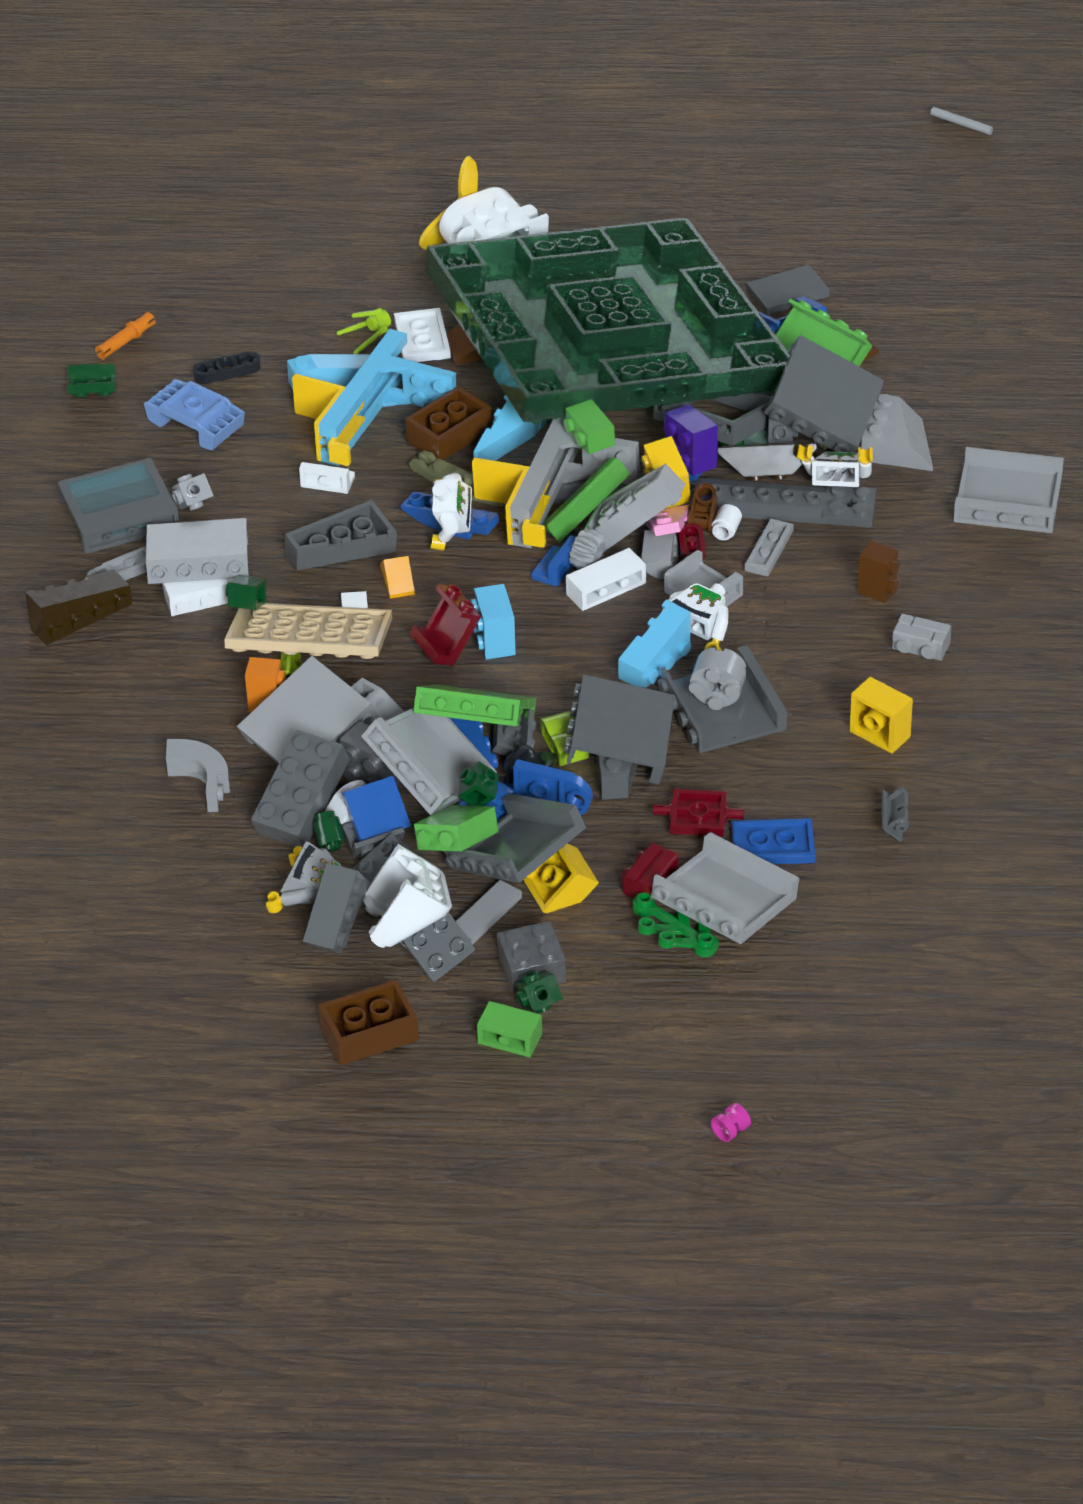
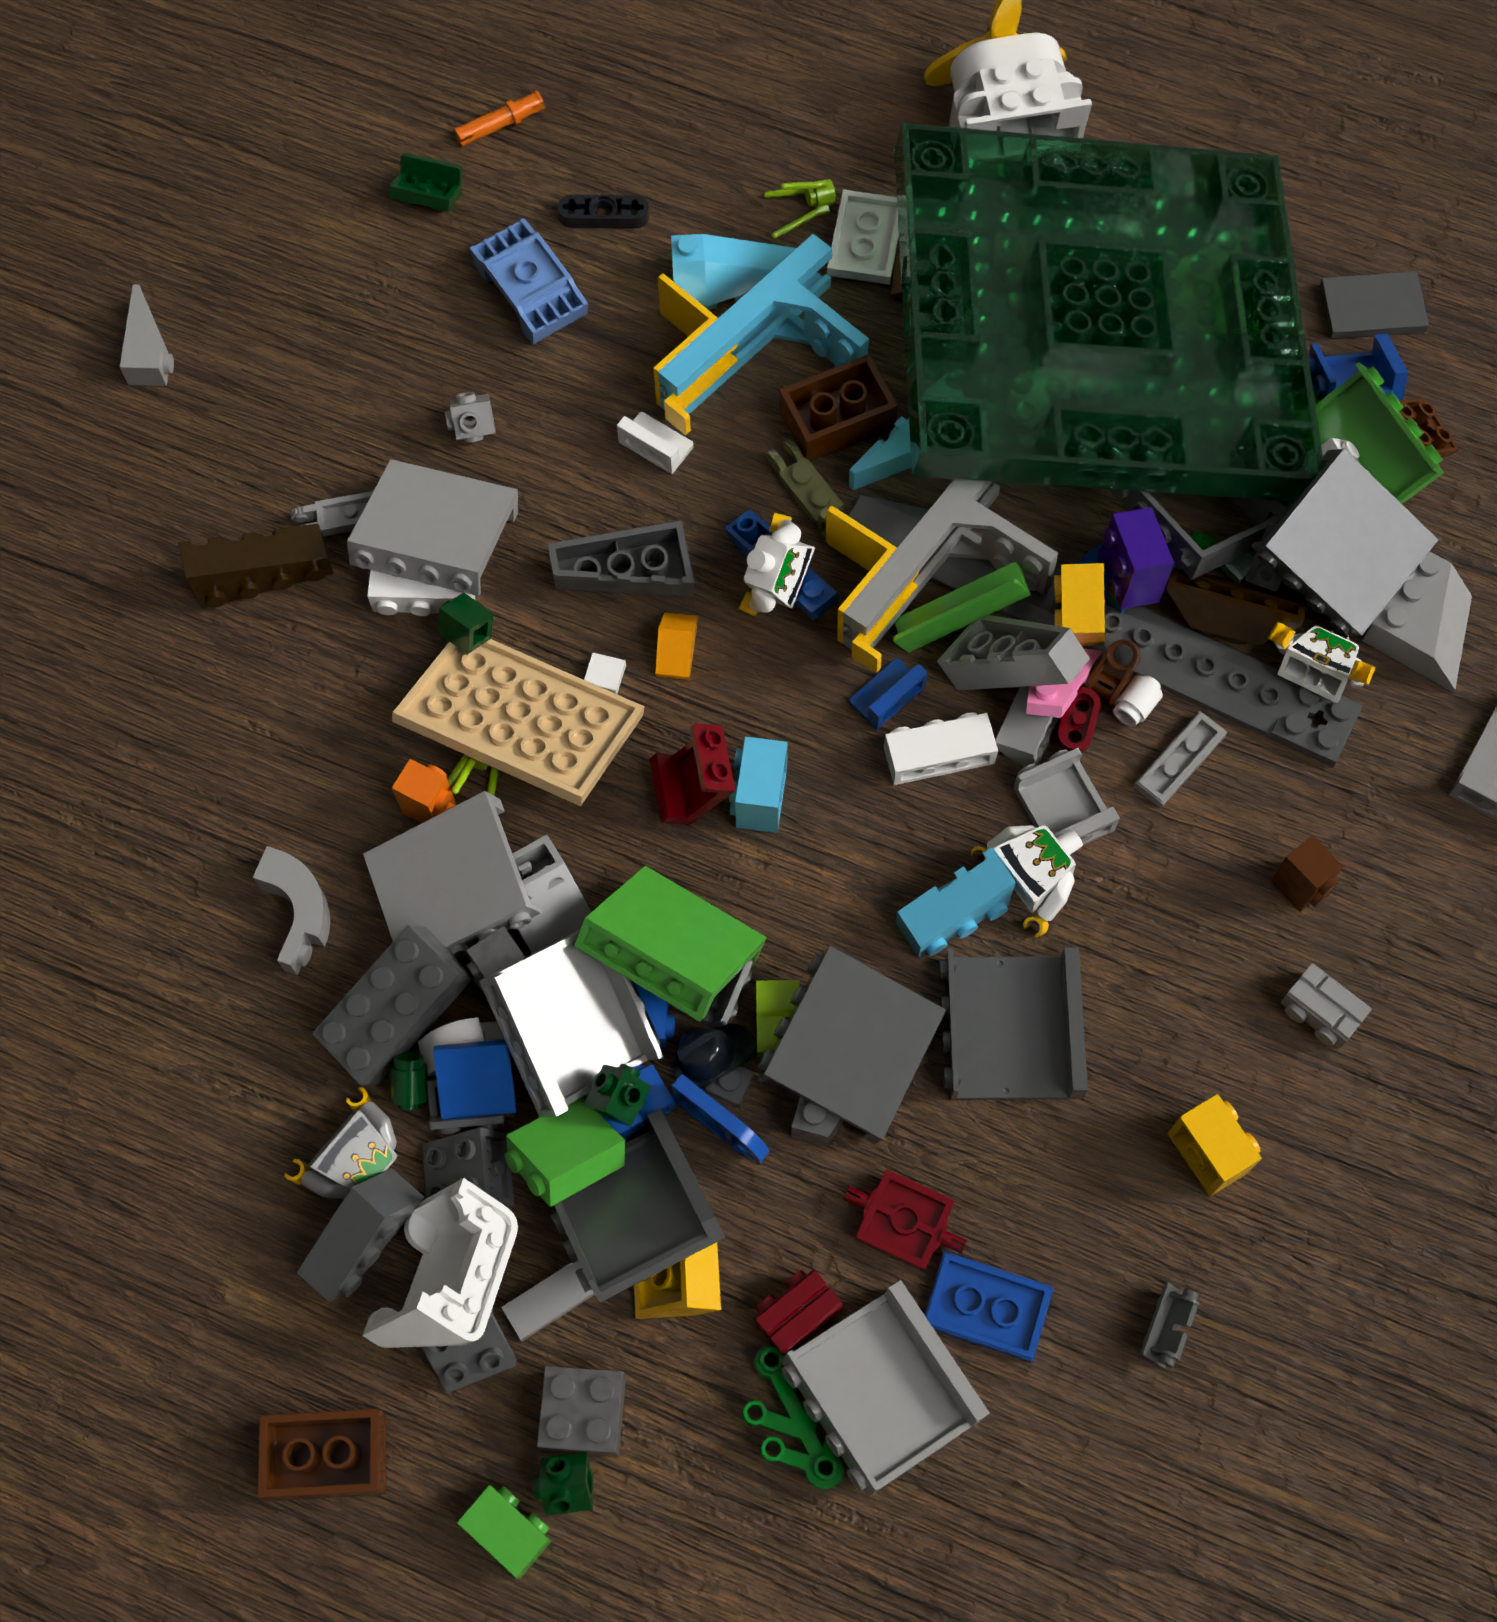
camera: 20 degrees right, 25 degrees up
(117, 504) = (373, 406): panel -> none
(587, 548) = (932, 694): light grey gear -> none
(589, 426) = (998, 511): bright green brick -> none
(718, 678) = (1015, 999): light grey brick -> none

